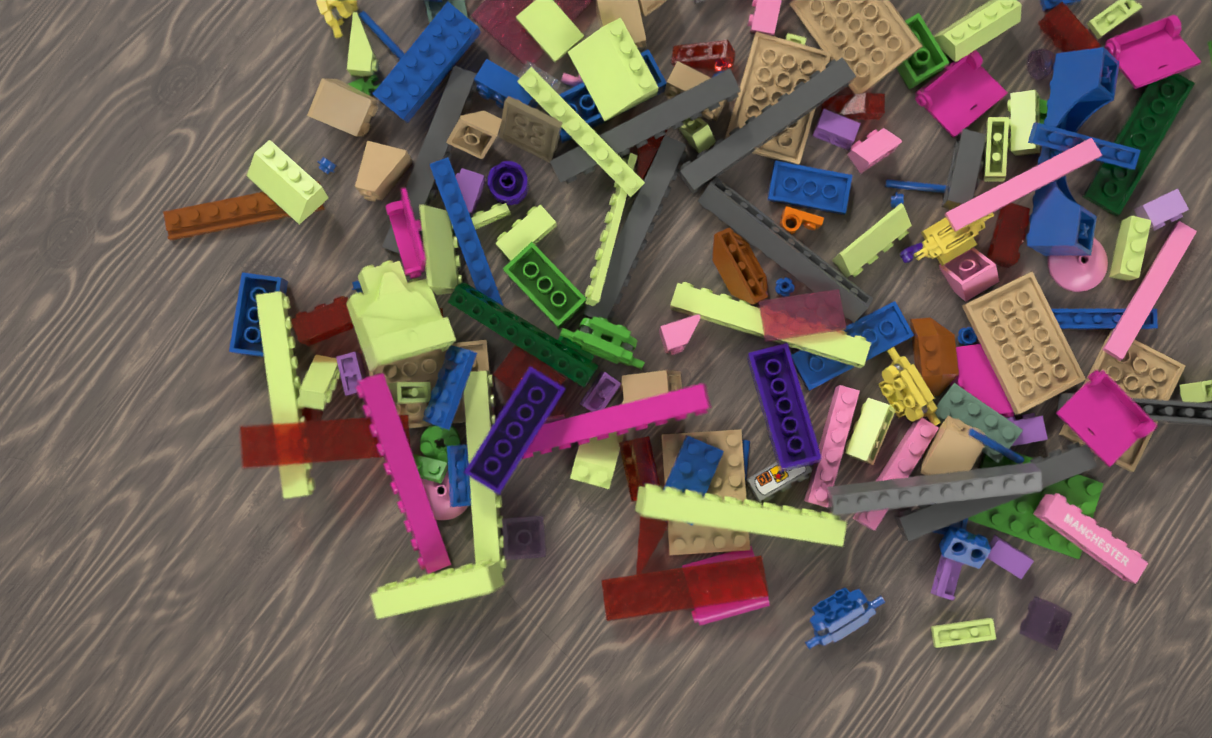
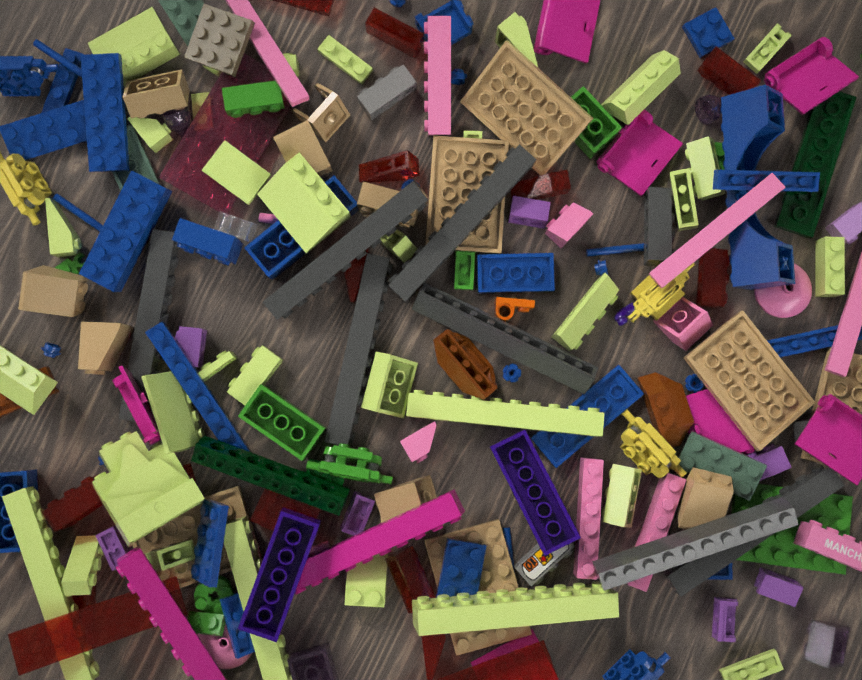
camera: 10 degrees left, 0 degrees up
(475, 133) = (184, 290): tan slope -> none
(502, 174) = (223, 321): dark purple brick -> none
(530, 129) = (236, 275): dark tan plate -> none
(581, 132) = (284, 269): yellowish green plate -> none
(608, 238) = (333, 362): yellowish green plate -> none
(659, 271) = (389, 384): none -> yellowish green slope
(758, 174) = (464, 270): none -> bright green plate
(802, 315) = (533, 400): clear pink plate -> none
(965, 547) = (735, 588): blue brick -> none
(995, 446) = (744, 488): blue bar -> none

